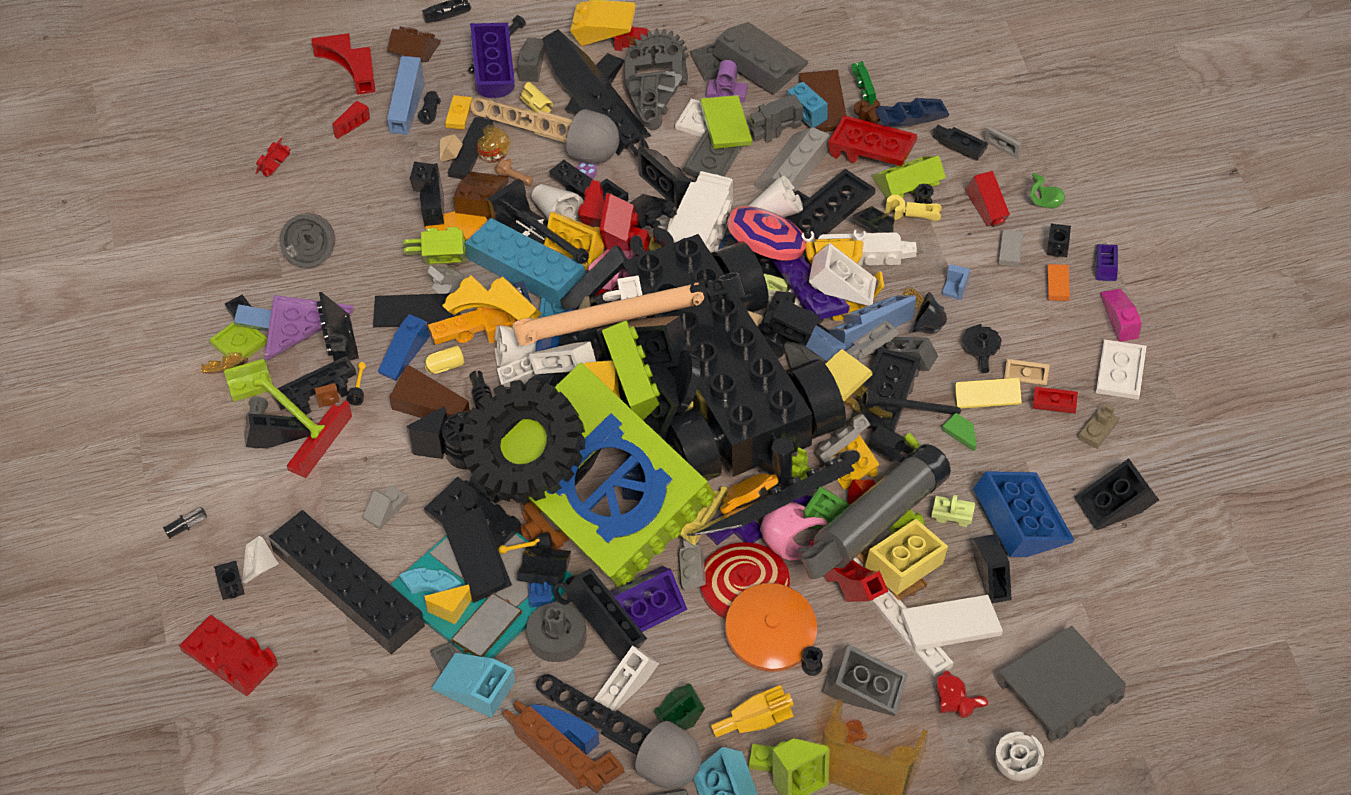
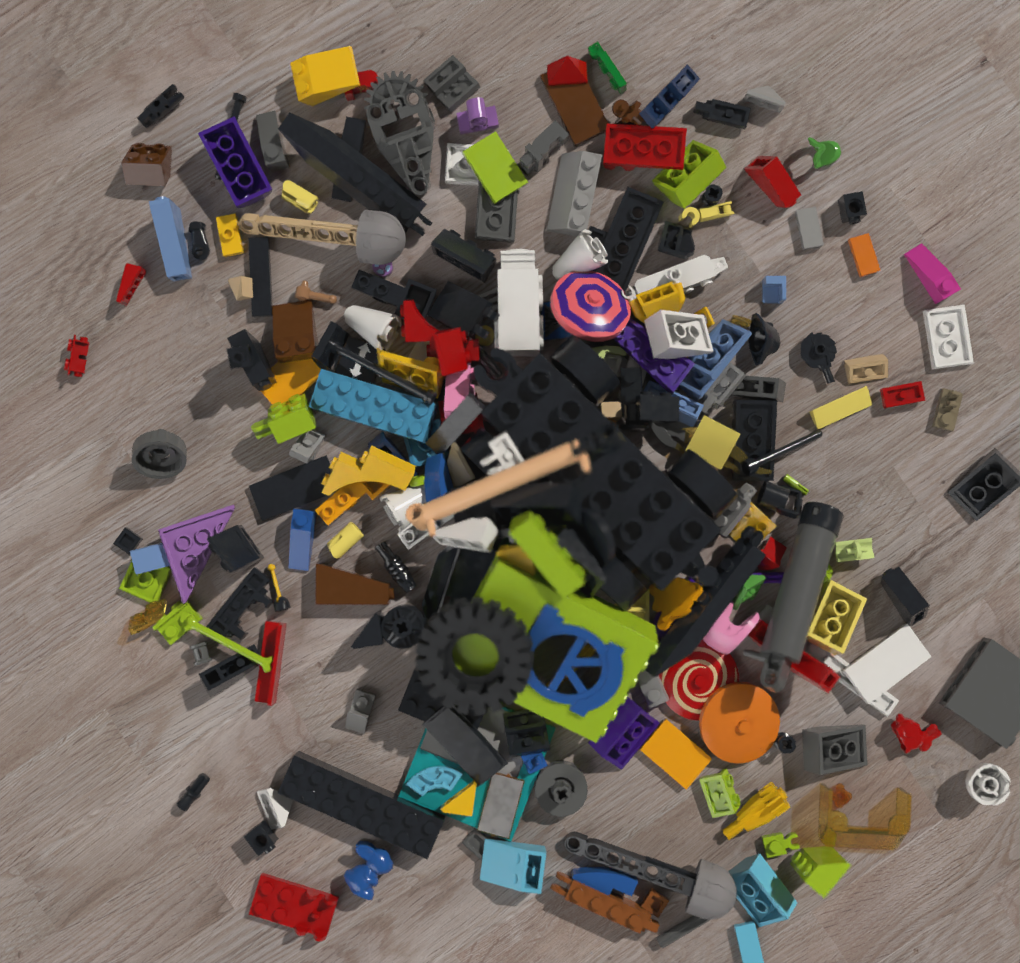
camera: 15 degrees left, 35 degrees up
(315, 643) = (365, 876): none -> blue animal
(327, 395) = (256, 616): dark orange plate -> none
(355, 61) = (103, 205): red arch -> none
(494, 144) = (285, 272): clear yellow helmet -> none
(542, 541) = (516, 711): hinge -> none
(602, 612) = (597, 769): black hinge -> none
(627, 678) = (638, 816): white slope -> none
(681, 707) = (691, 827): dark green slope -> none
(691, 640) = (675, 753): none -> light orange tile
(723, 686) = (720, 793): none -> lime bracket
(759, 56) = (496, 68): dark grey slope -> none
(800, 463) = (708, 552): lime plate -> none
(813, 105) = (571, 121): dark azure brick -> none
(825, 73) = (567, 71): none -> red slope
(961, 430) = (830, 454): bright green tile -> none
(1022, 512) = (912, 530): blue slope -> none
(1107, 263) = (902, 227): dark purple slope -> none

